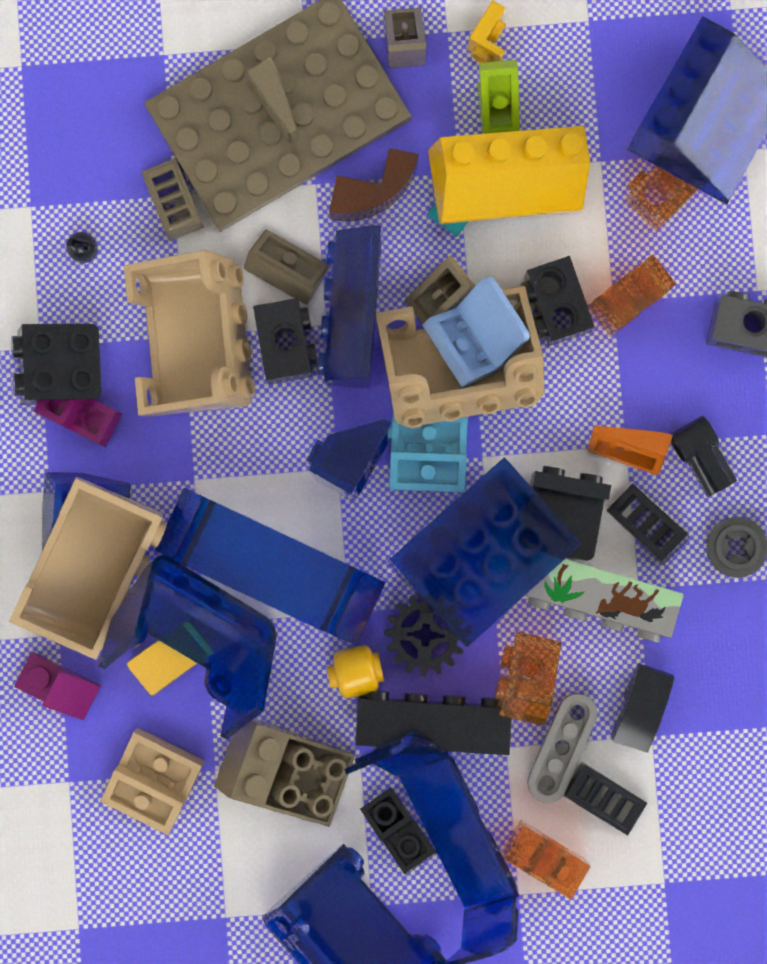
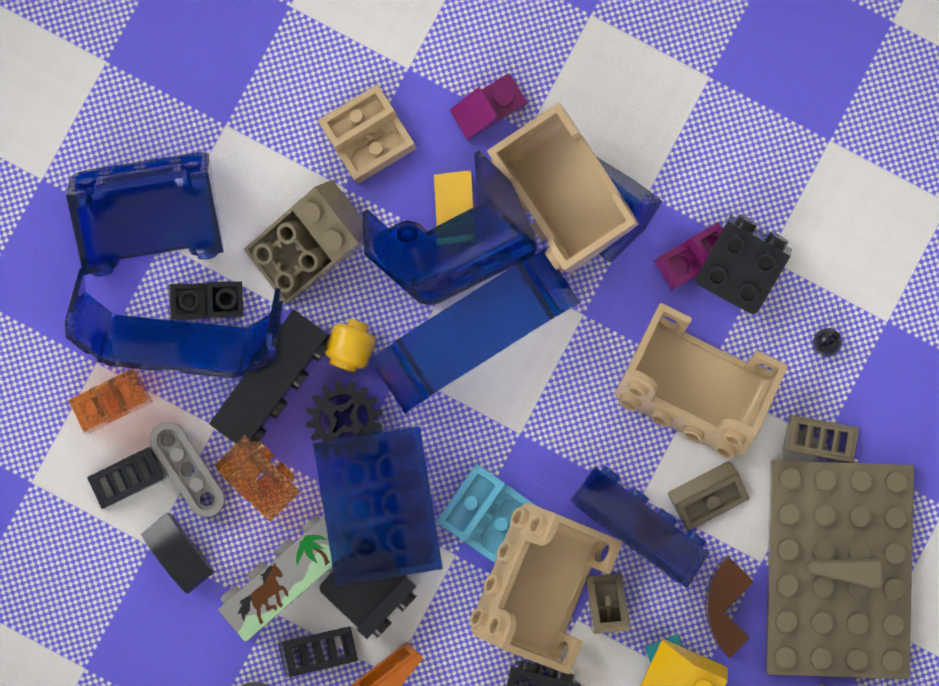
camera: 115 degrees right, 0 degrees up
(271, 322) = (669, 456): black brick -> none
(349, 457) = (516, 443): clear blue slope -> none
(478, 333) = (554, 611): light blue bracket -> none

